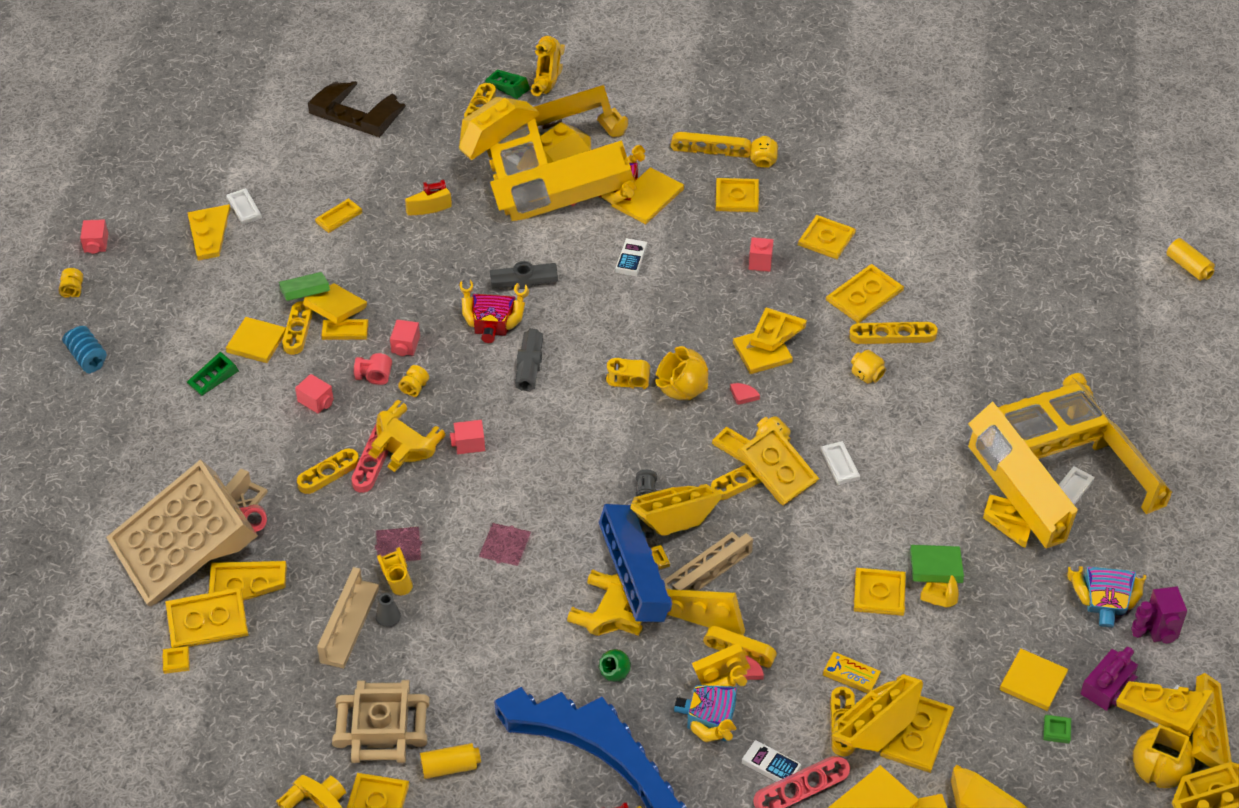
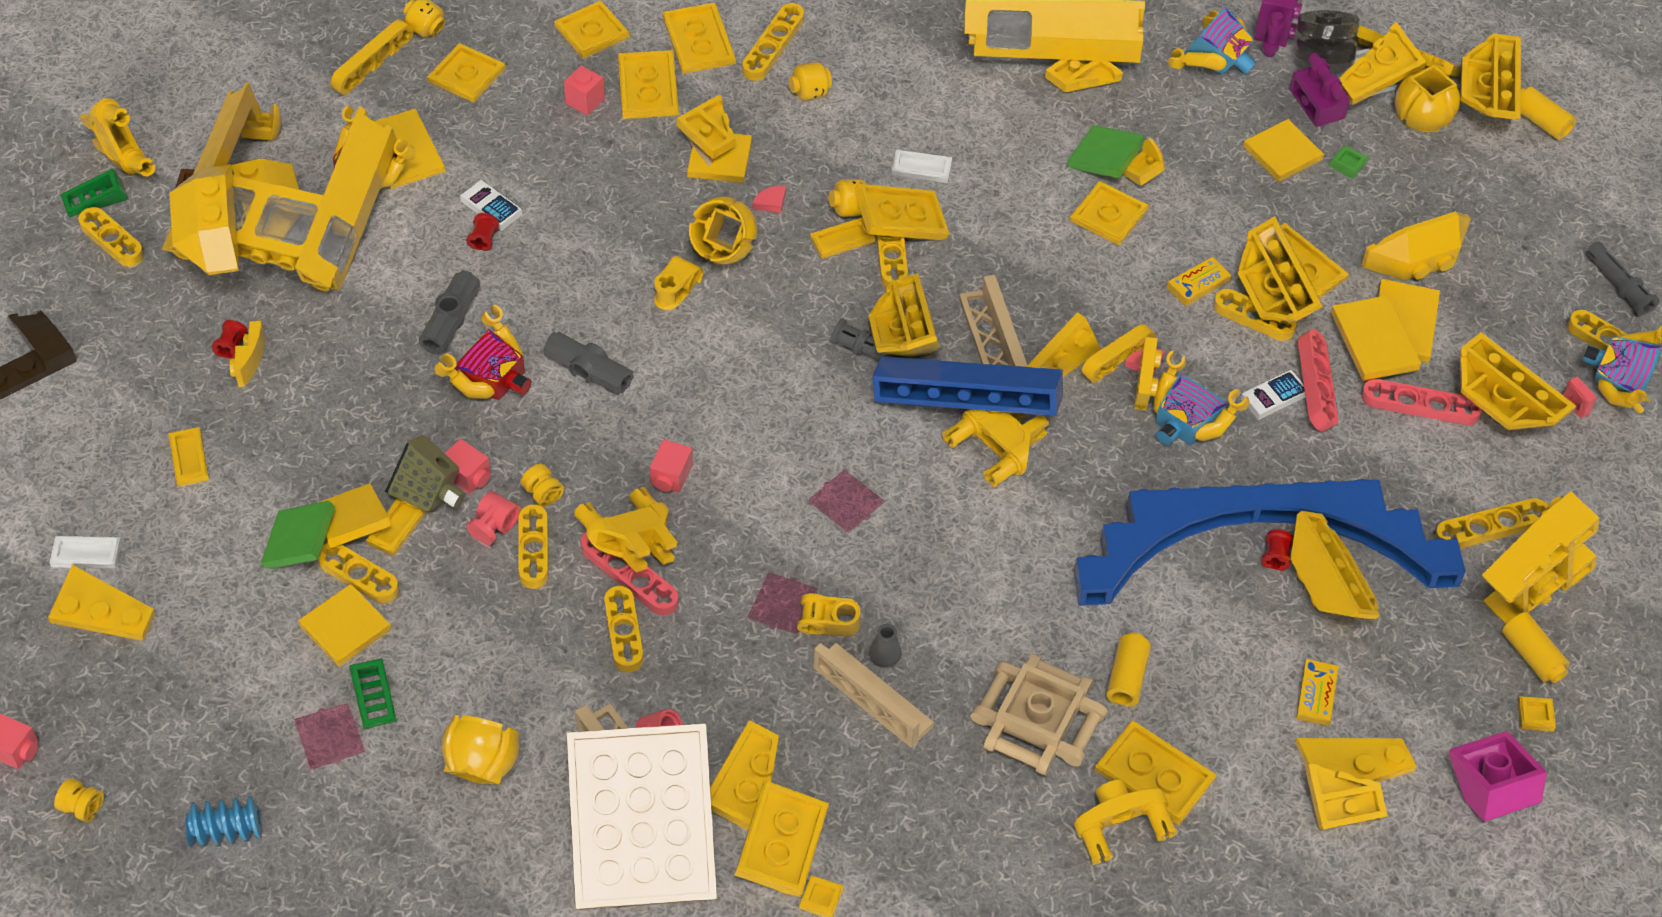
camera: 65 degrees left, 5 degrees up
(173, 370) = (329, 736): none -> clear pink piece
(186, 434) = (479, 749): none -> yellow piece
(314, 393) = (492, 593): coral brick -> none
(369, 391) = (527, 536): none -> yellow beam
(379, 319) = (425, 476): none -> olive torso
(602, 262) = (482, 233): none -> red bush
(619, 660) = (1085, 460): green piece -> none
(799, 286) = (648, 84): none -> yellow tile
(1168, 656) = (1328, 35): none -> clear smoke wheel

